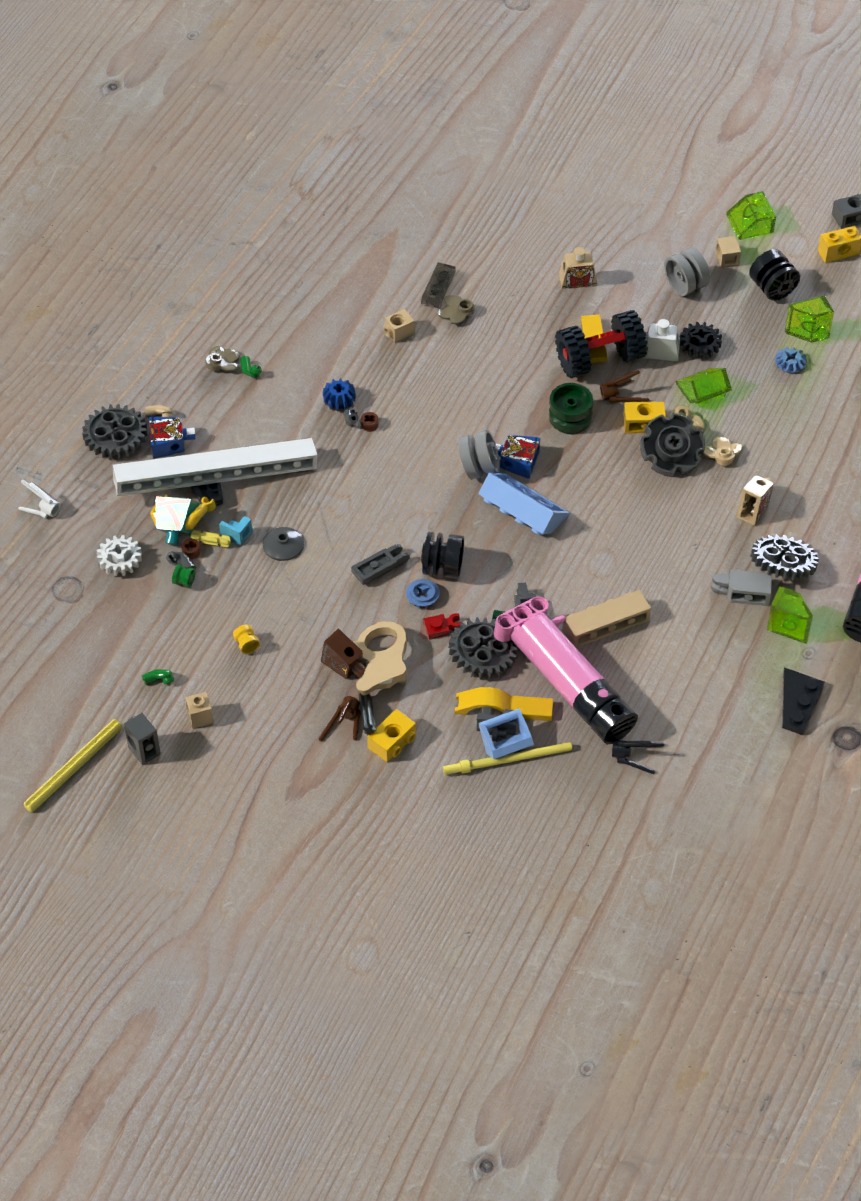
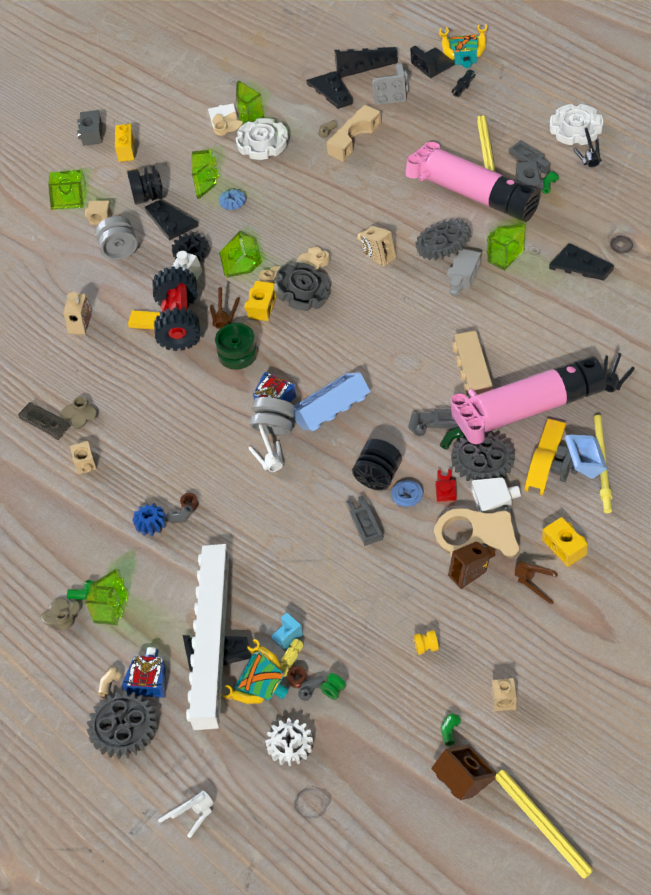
camera: 70 degrees left, 0 degrees up
(113, 693) = (463, 771): none -> reddish brown slope
(142, 738) = (534, 747): dark grey brick -> none
(238, 383) = (107, 598): none -> clear neon green slope
(283, 543) = (315, 604): dark grey dish -> none
(367, 713) = (541, 554): pearl dark grey axle -> none
(433, 665) = (493, 495): none -> white torso
(435, 473) = (273, 461): none -> white plant
(511, 585) = (414, 425): none -> dark grey arm
(740, 315) = (169, 220): none -> black wing

